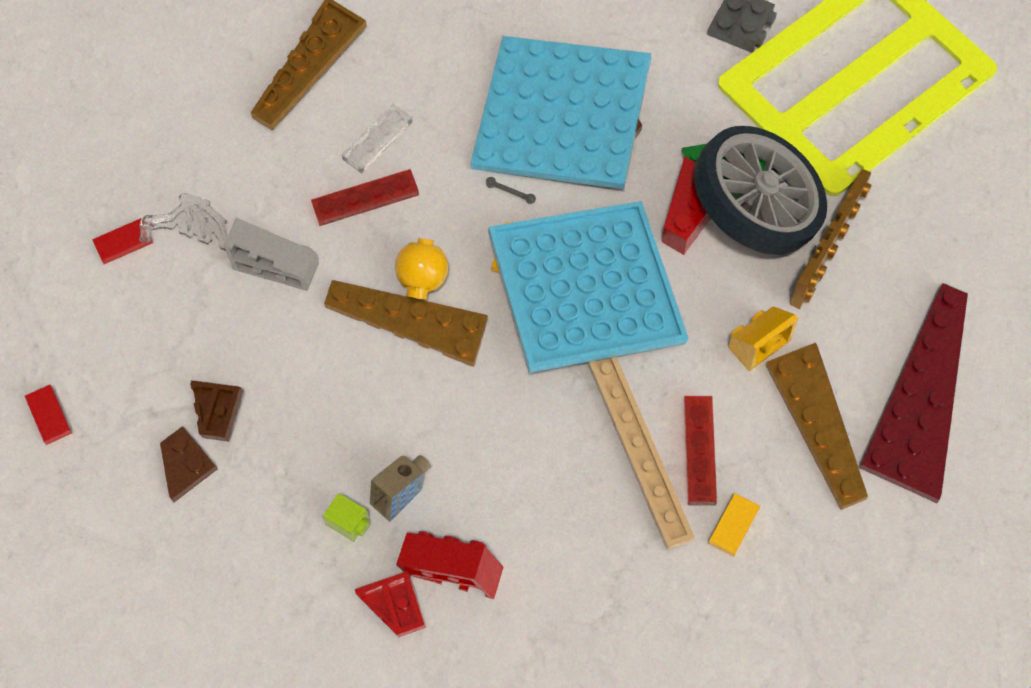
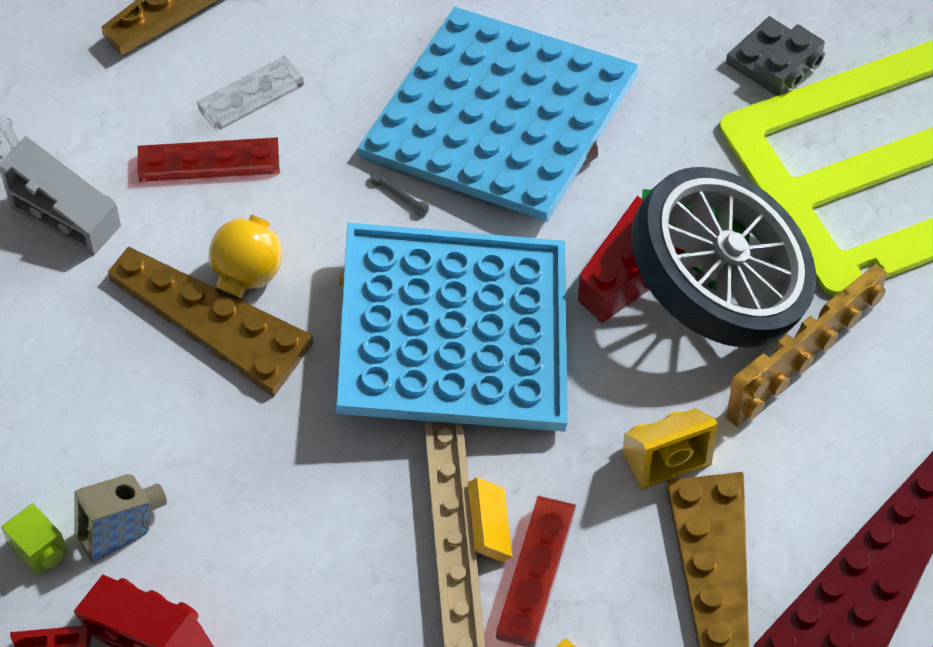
camera: 15 degrees right, 10 degrees down
(656, 421) = (489, 519): none -> yellow tile

